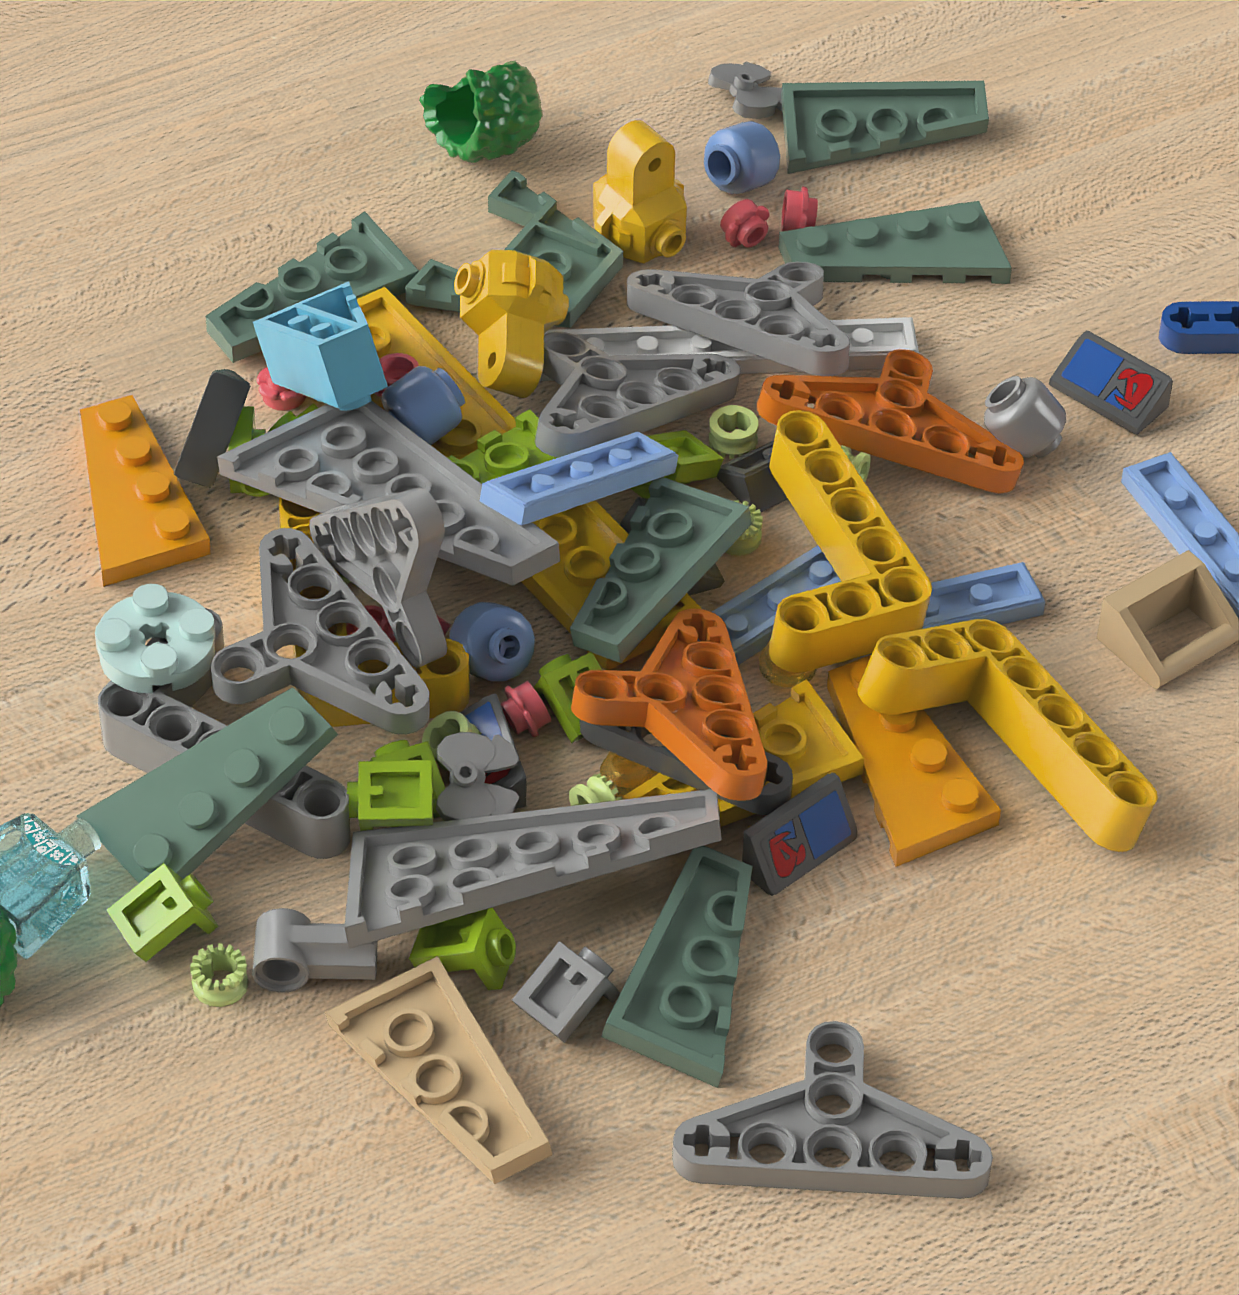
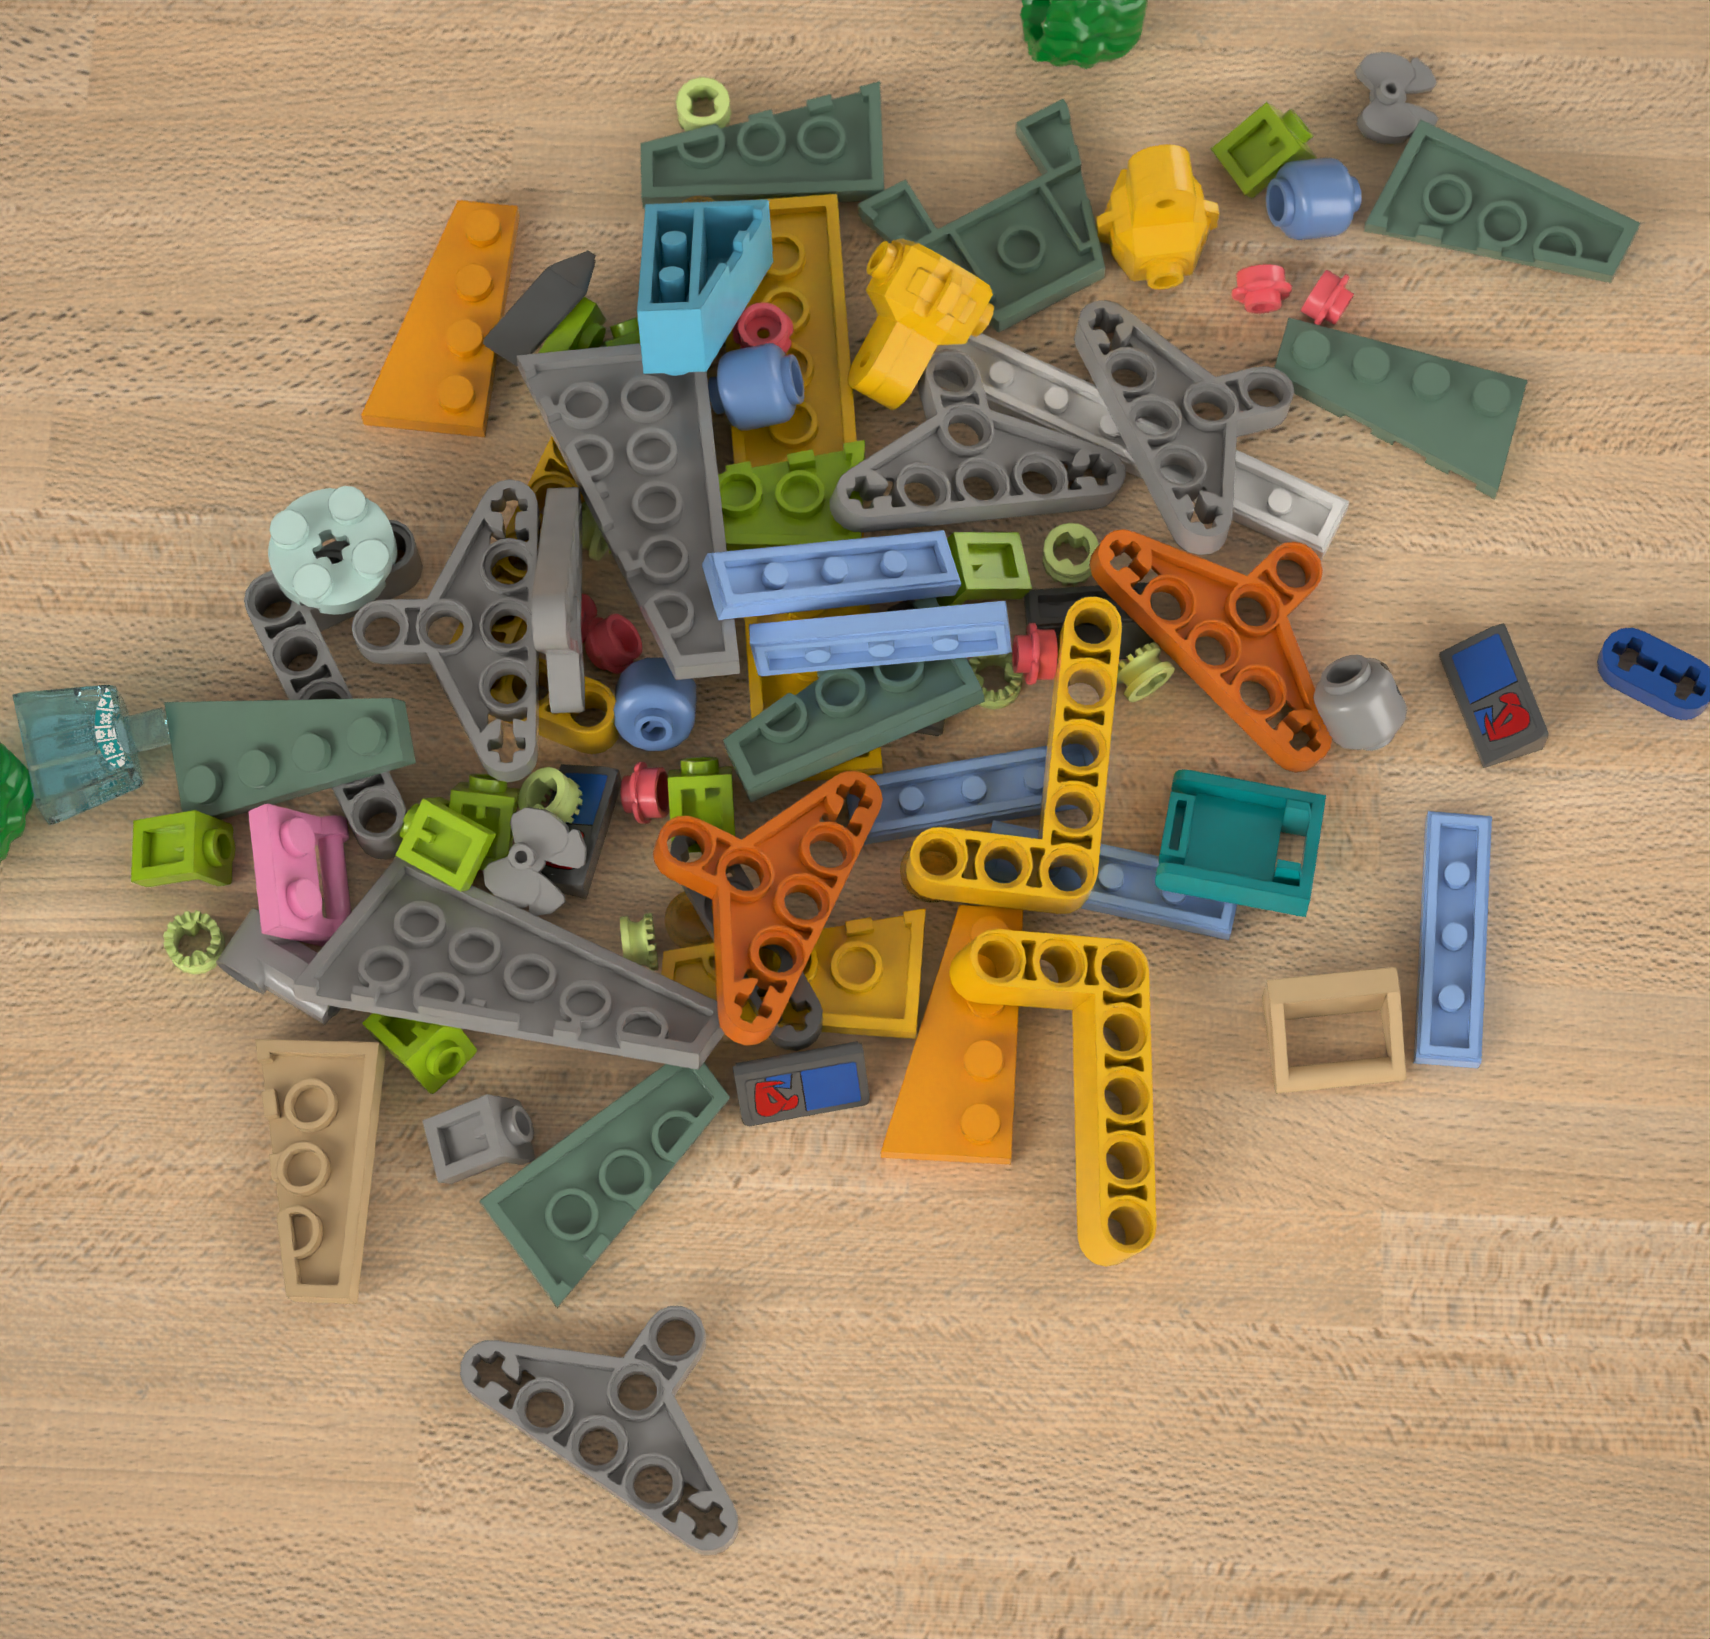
camera: 35 degrees right, 25 degrees up
(229, 272) = (703, 88): none -> yellowish green bush
(284, 871) = (289, 874): none -> bright pink plate
(650, 501) = (880, 638): none -> light blue tile
(689, 136) = (1262, 146): none -> lime bracket
(763, 486) = (1035, 654): none -> coral plate
(998, 542) = (1226, 838): none -> teal container

